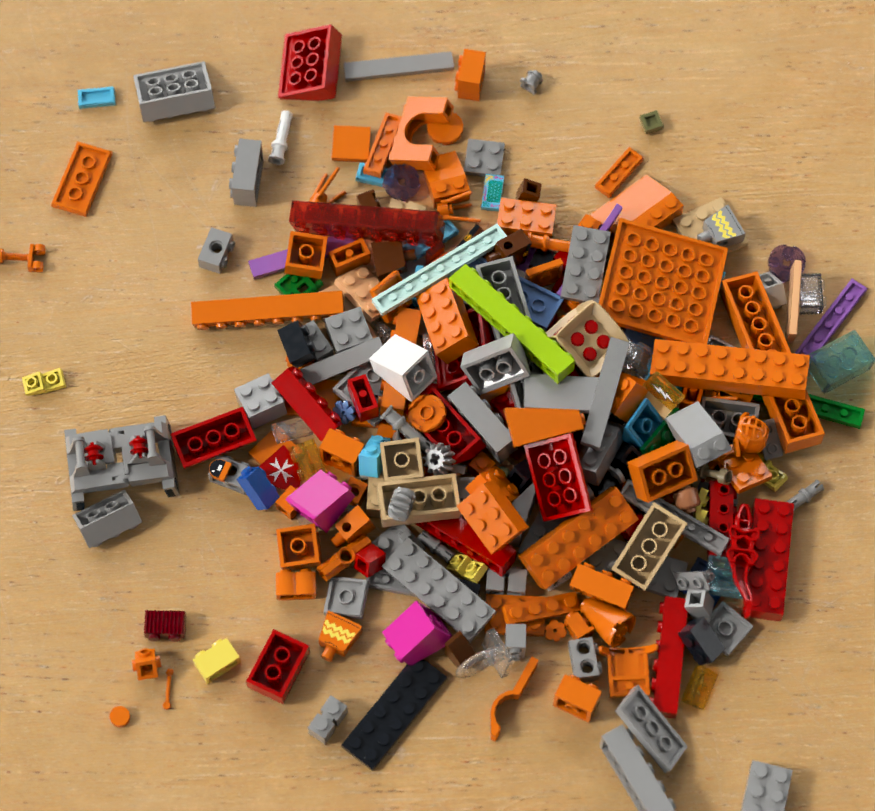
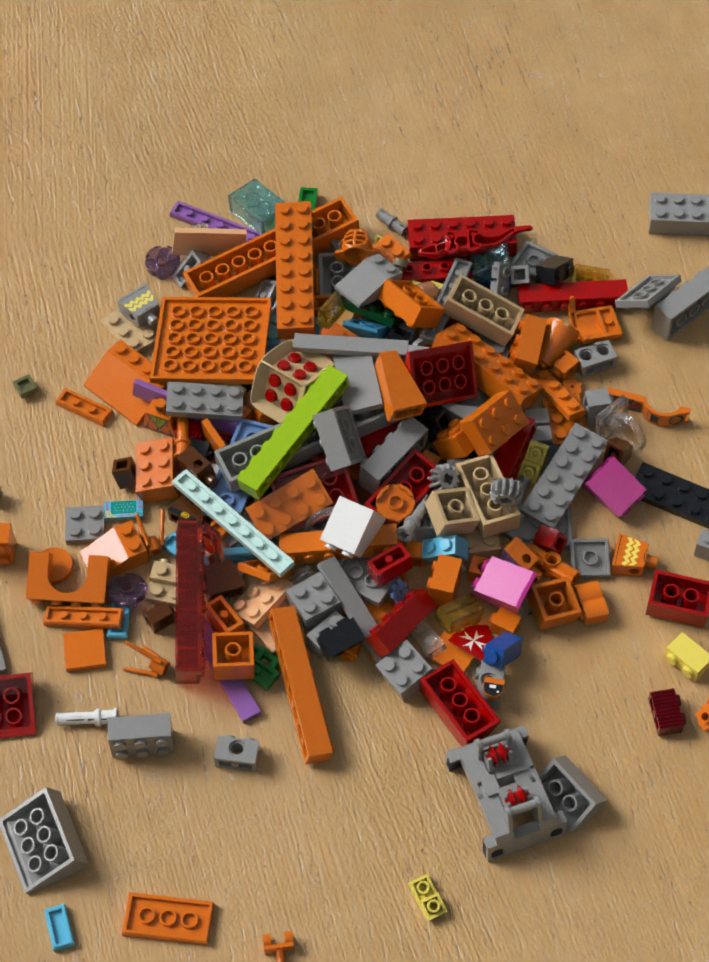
camera: 100 degrees left, 10 degrees down
(577, 697) = (634, 352): orange brick -> none

